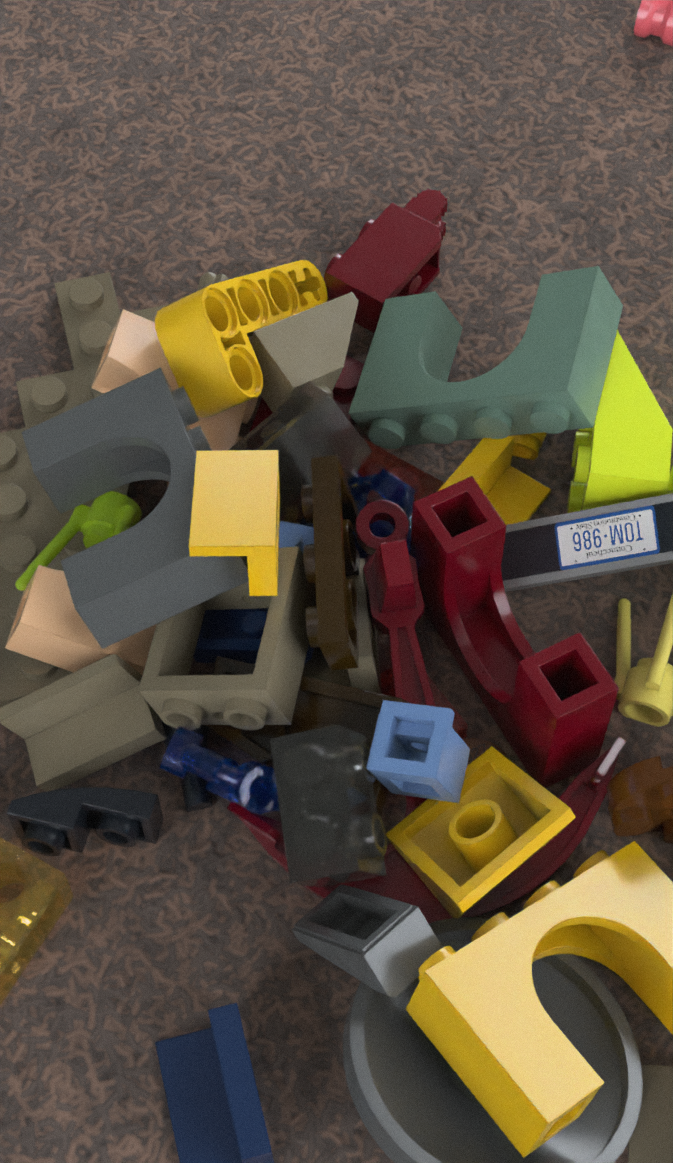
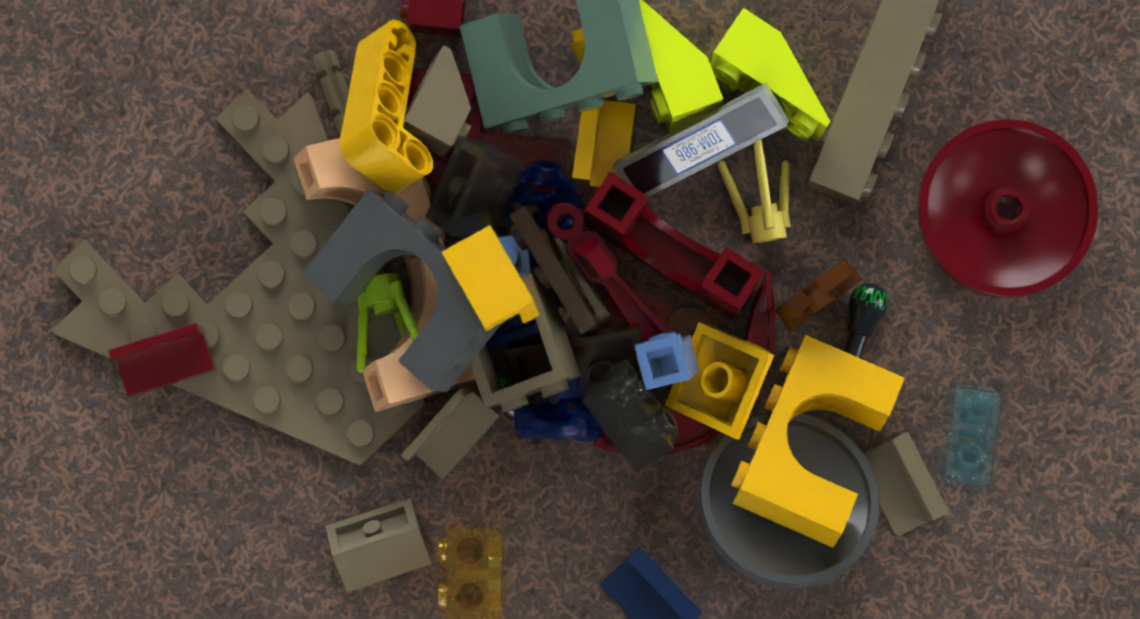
camera: 30 degrees left, 25 degrees up
(65, 816) = (472, 494): black slope -> none
(369, 937) = (714, 477): dark grey slope -> none

